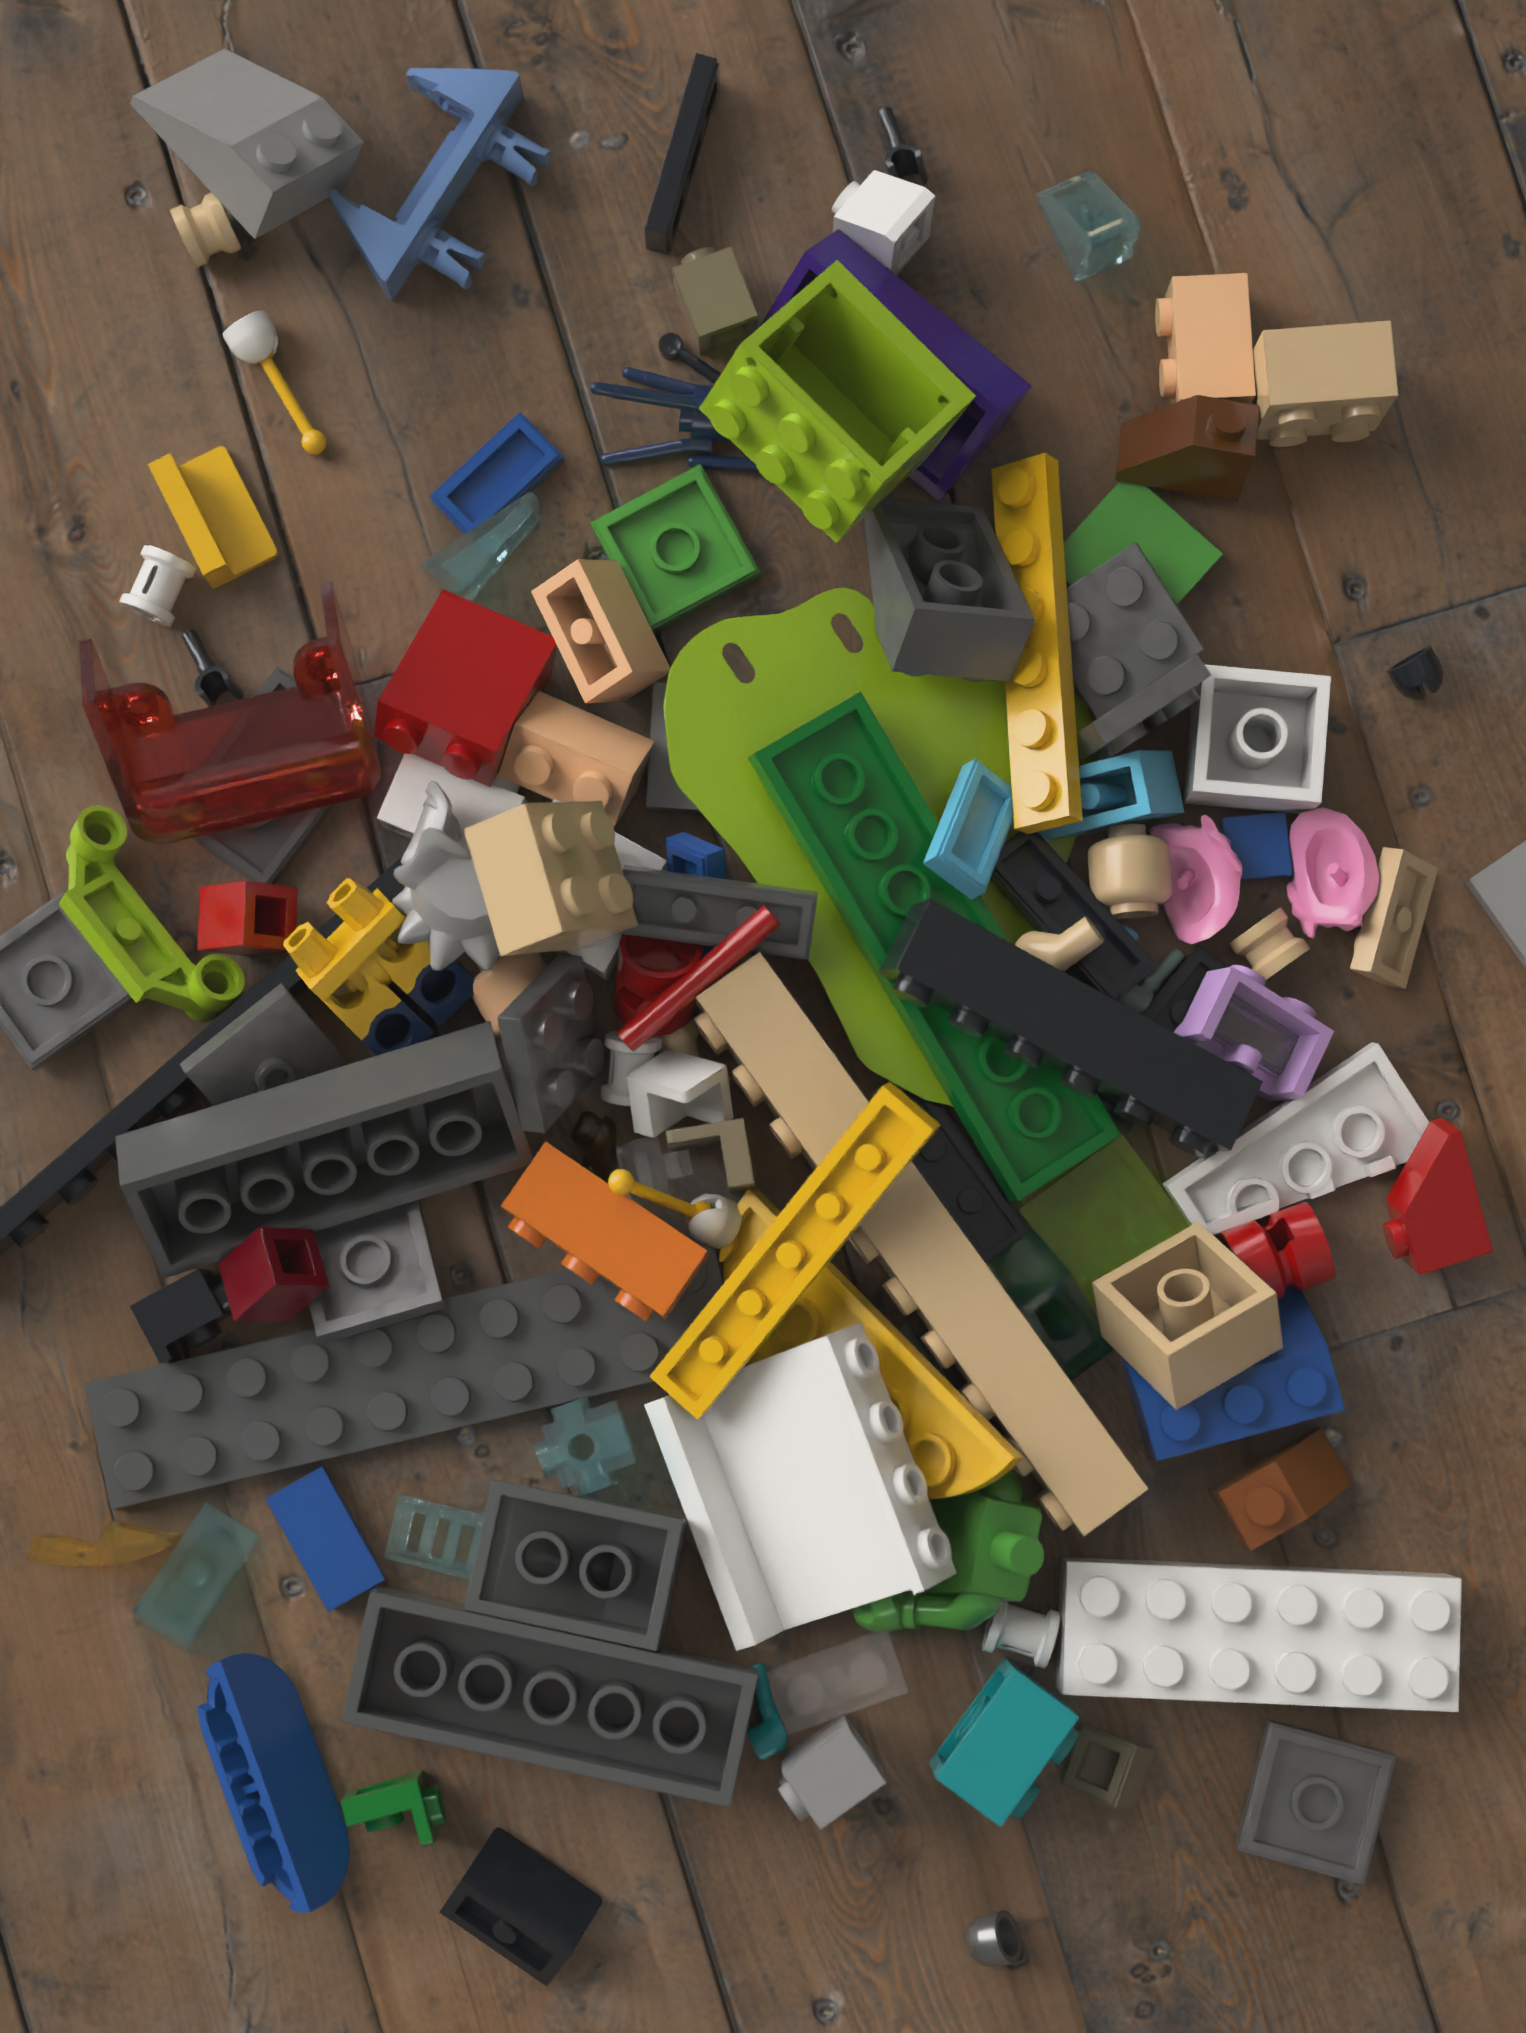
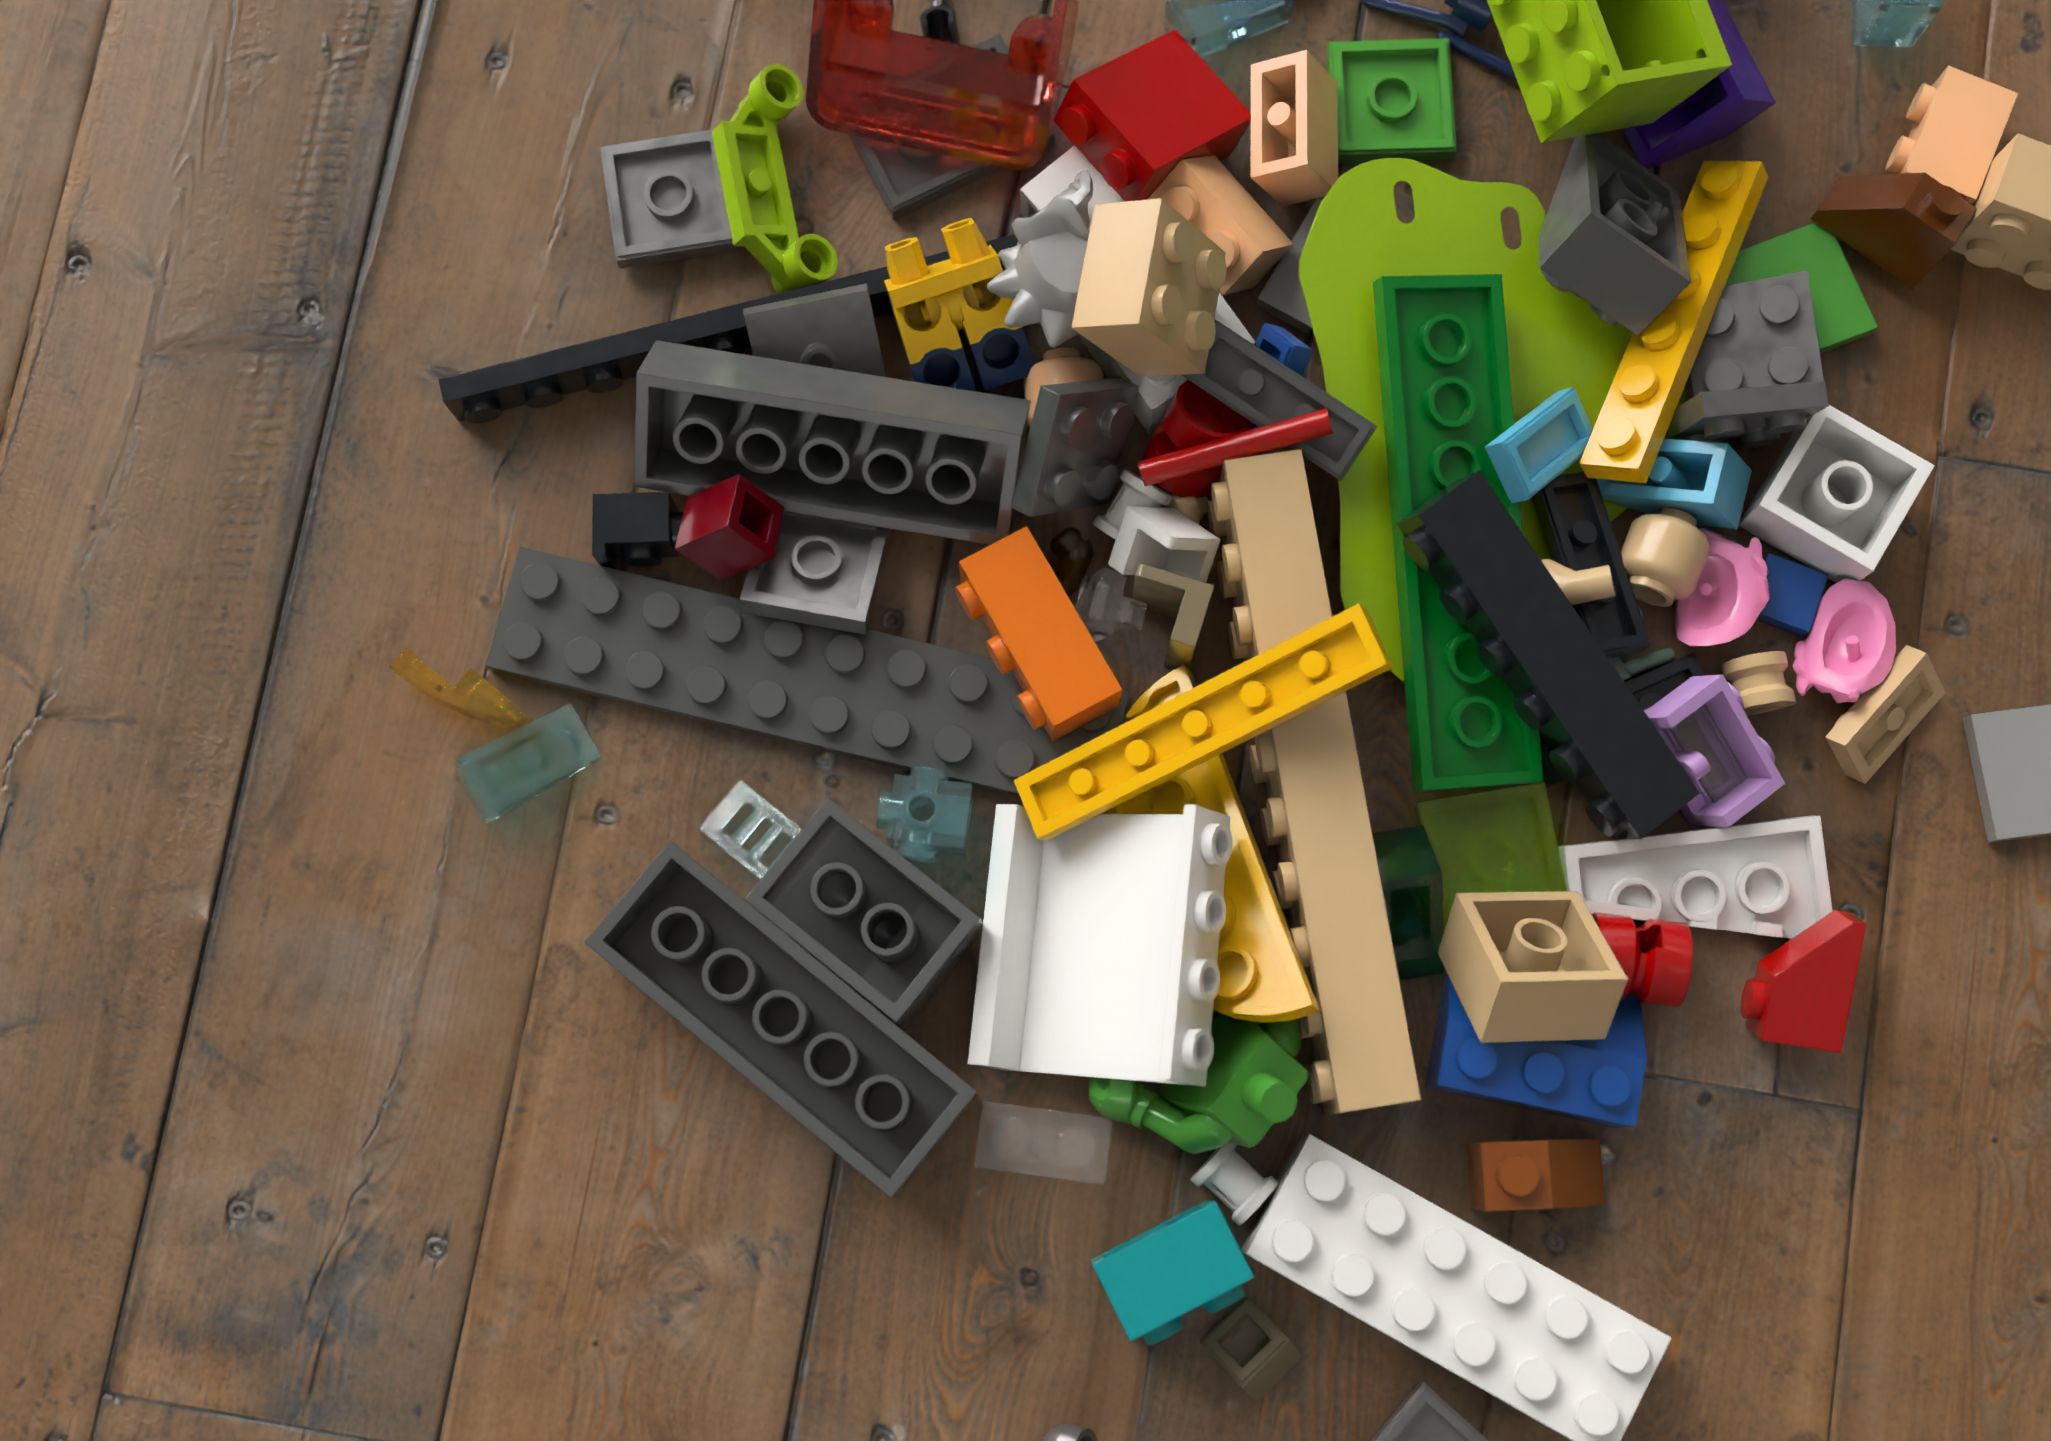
camera: 30 degrees right, 5 degrees down
(246, 918) = (863, 219): red brick -> none
(274, 1780) = (501, 971): blue brick -> none
(326, 1538) = (657, 785): blue tile -> none
(384, 1802) = (585, 1042): green bracket -> none
(522, 1906) = (659, 1197): black panel -> none
(708, 1215) = (1135, 670): hinge -> none
(768, 1735) = (958, 1159): teal hand -> none
(829, 1773) = (995, 1216): light grey brick -> none
(967, 1187) = (1382, 754): black tile -> none
(1417, 669) = (2006, 508): black hinge -> none

